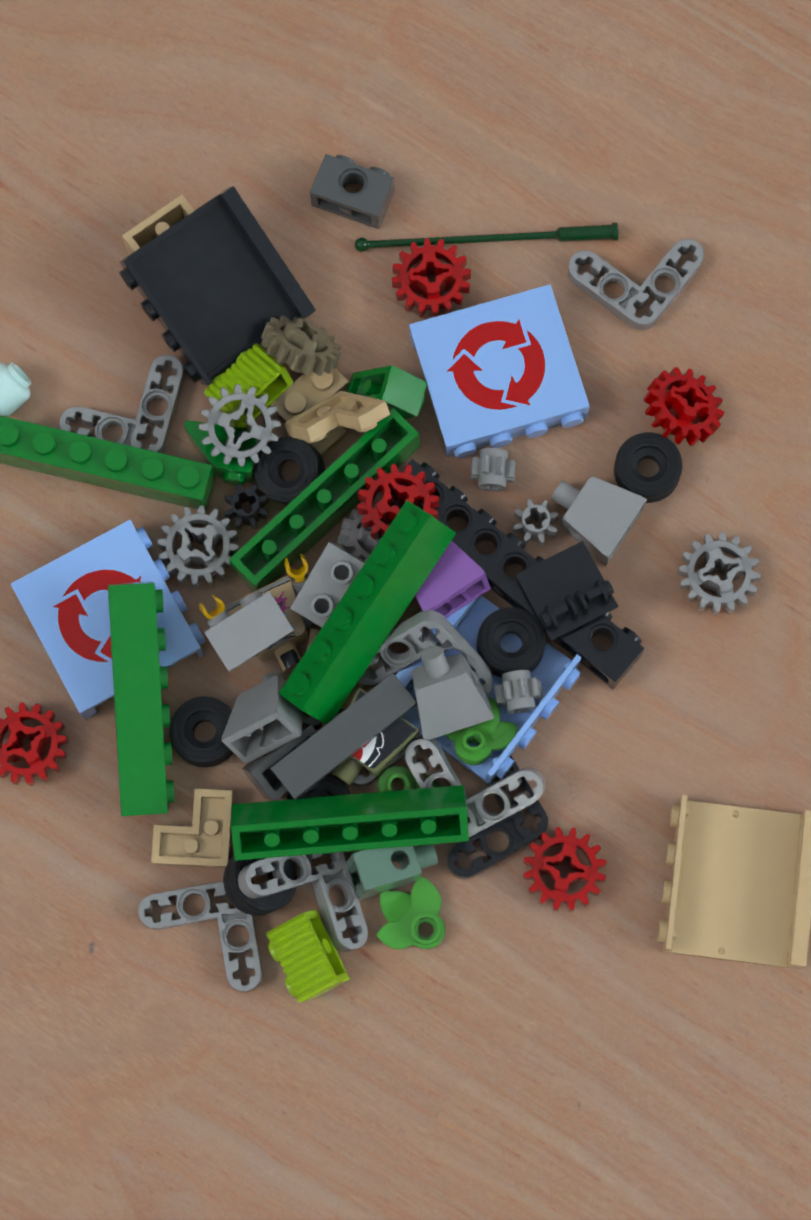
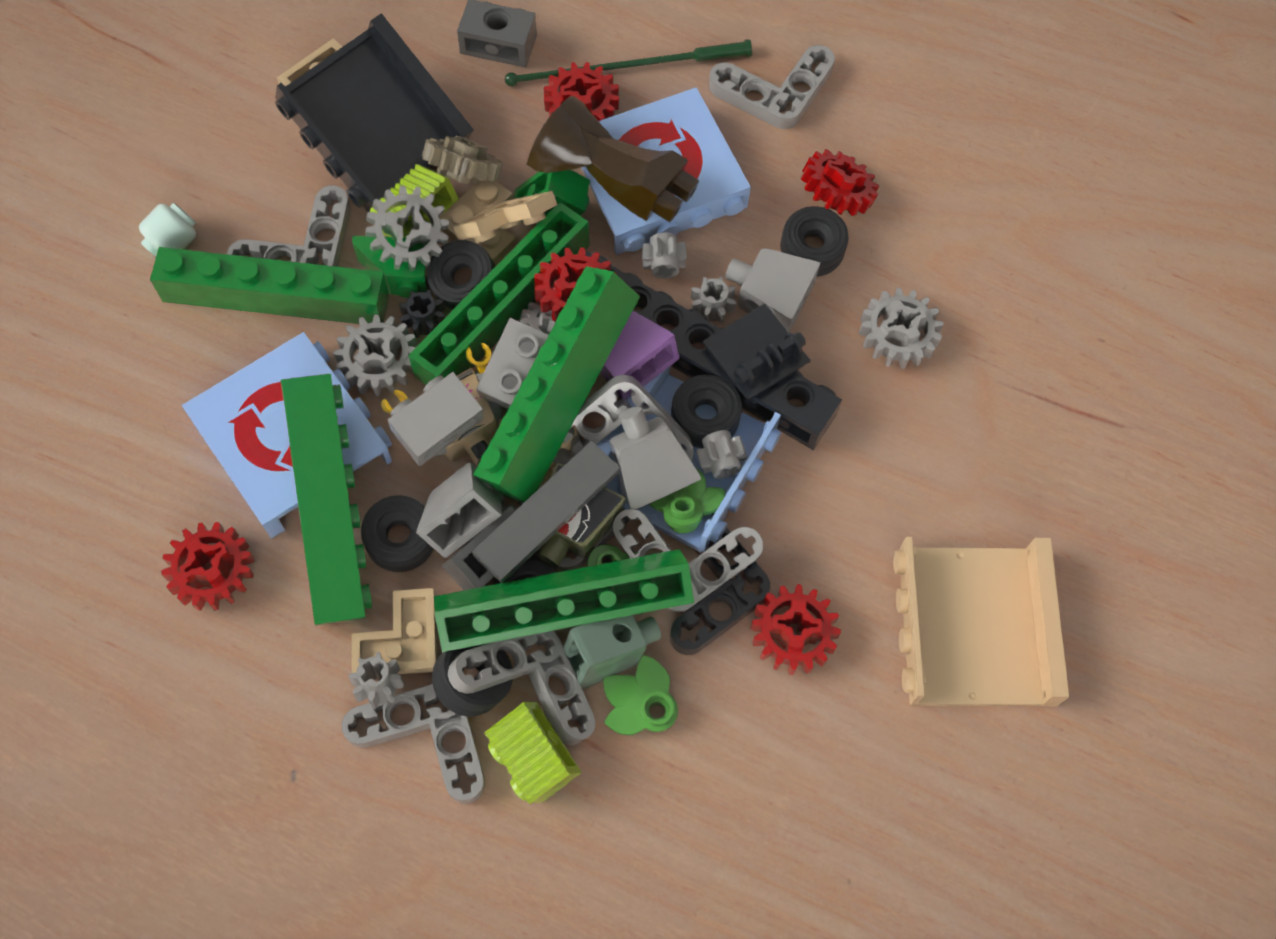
camera: 15 degrees left, 10 degrees down
(165, 881) = (380, 691): none -> light grey gear
(462, 384) = (628, 173): none -> dark brown hips

